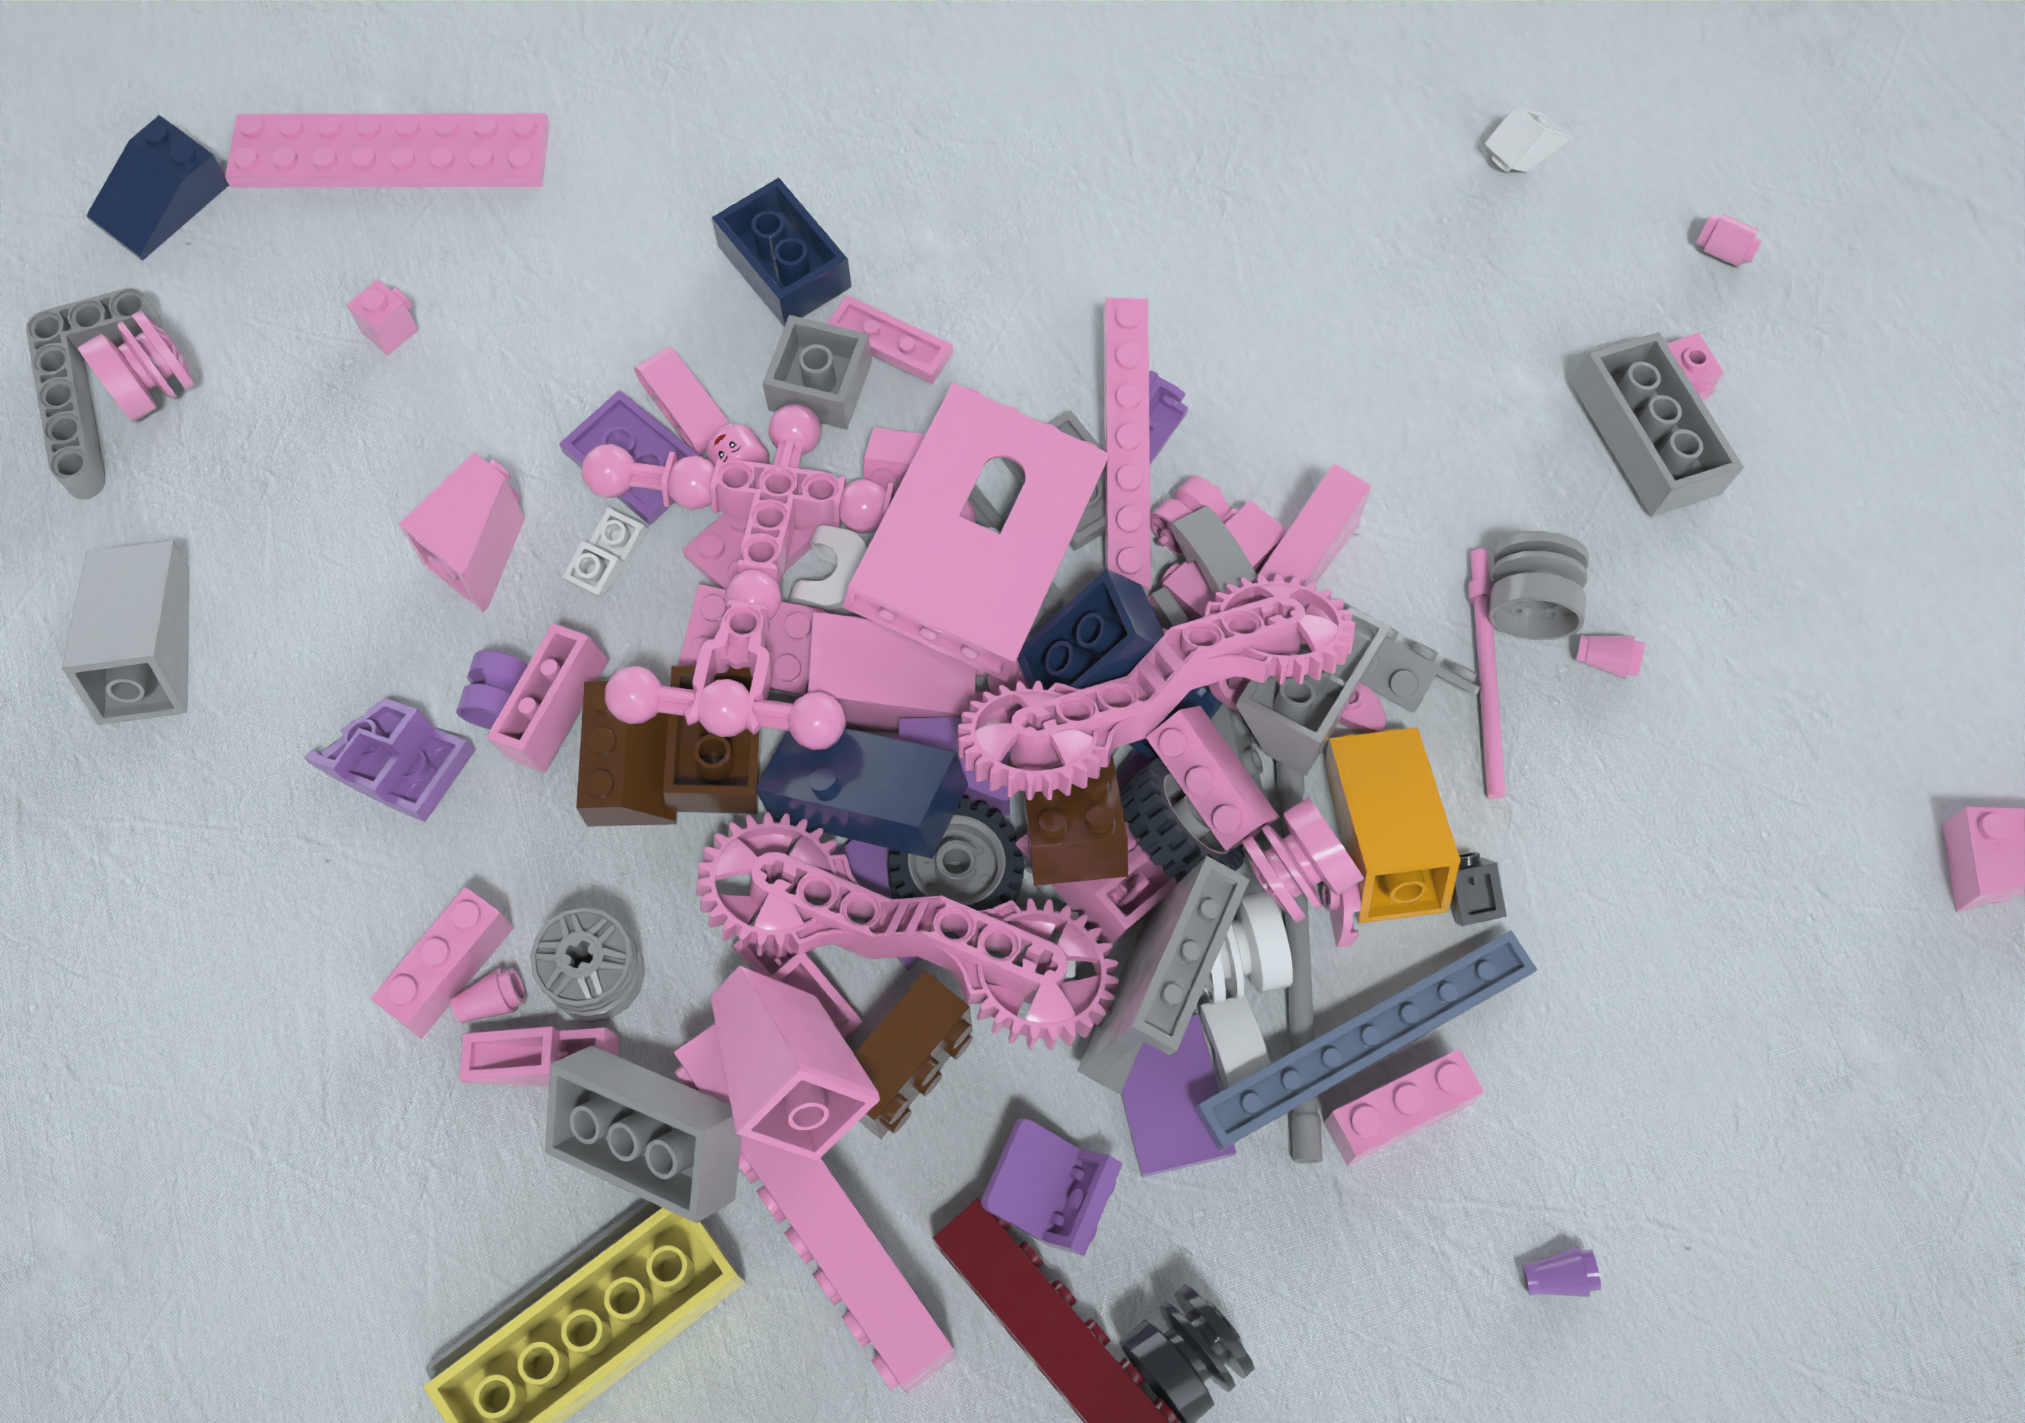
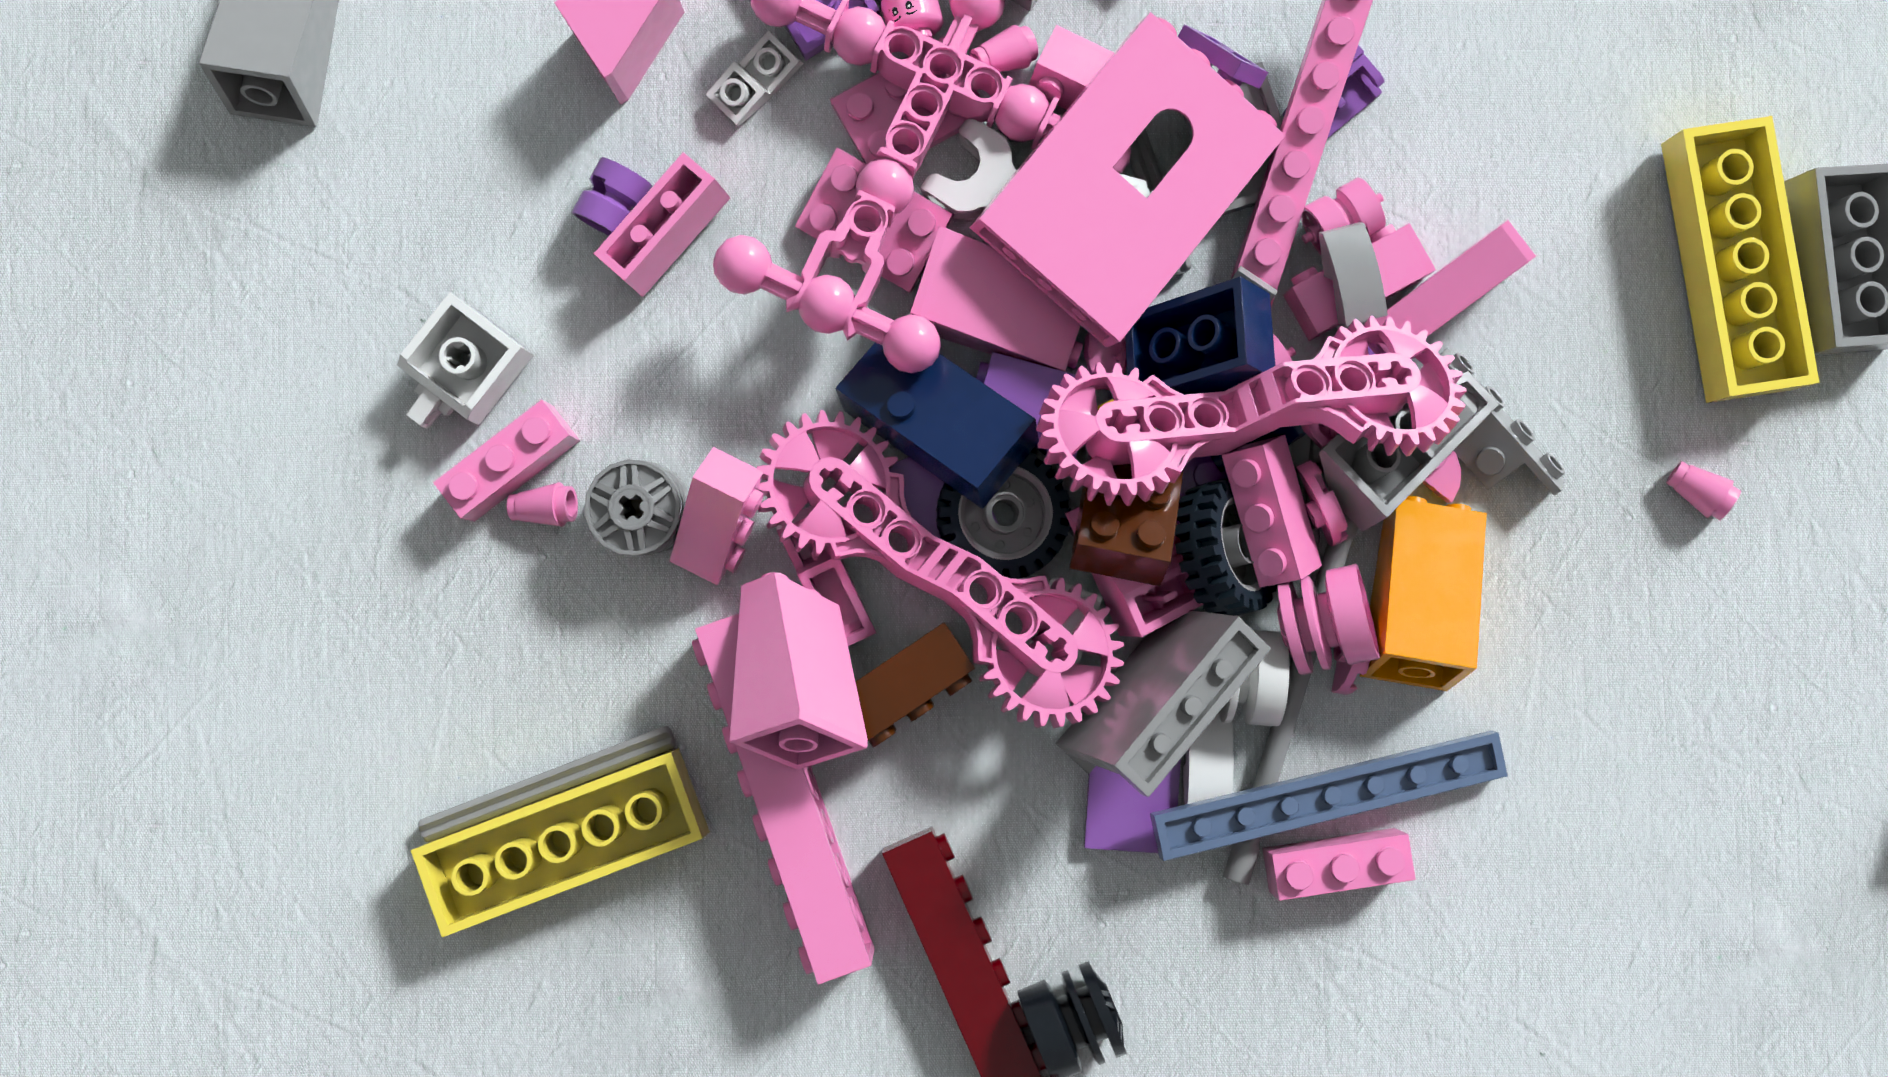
camera: 15 degrees right, 20 degrees up
(368, 903) = (444, 380): none -> white hinge
(395, 758) = (505, 238): medium lavender slope -> none
(525, 1054) = (576, 576): bright pink slope -> none
(620, 766) = (720, 327): reddish brown slope -> none
(643, 1133) = (649, 689): light grey brick -> none
(669, 943) = (717, 516): none -> bright pink brick
(709, 770) = (788, 347): reddish brown brick -> none
(839, 459) = (1009, 49): none -> bright pink cone
(1041, 410) = (1230, 63): none -> medium lavender plate
(1050, 1187) = (1001, 840): medium lavender bracket -> none
(1167, 609) = (1287, 318): light grey tile -> none
(1261, 762) = (1323, 505): none -> bright pink plate
(1477, 890) = (1485, 687): bracket -> none
(1479, 595) = (1601, 386): bright pink bar -> none
(1539, 585) = (1661, 403): light grey wheel -> none
(1559, 449) = (1739, 260): none -> light yellow brick
(1564, 1274) = (1424, 1047): medium lavender cone -> none

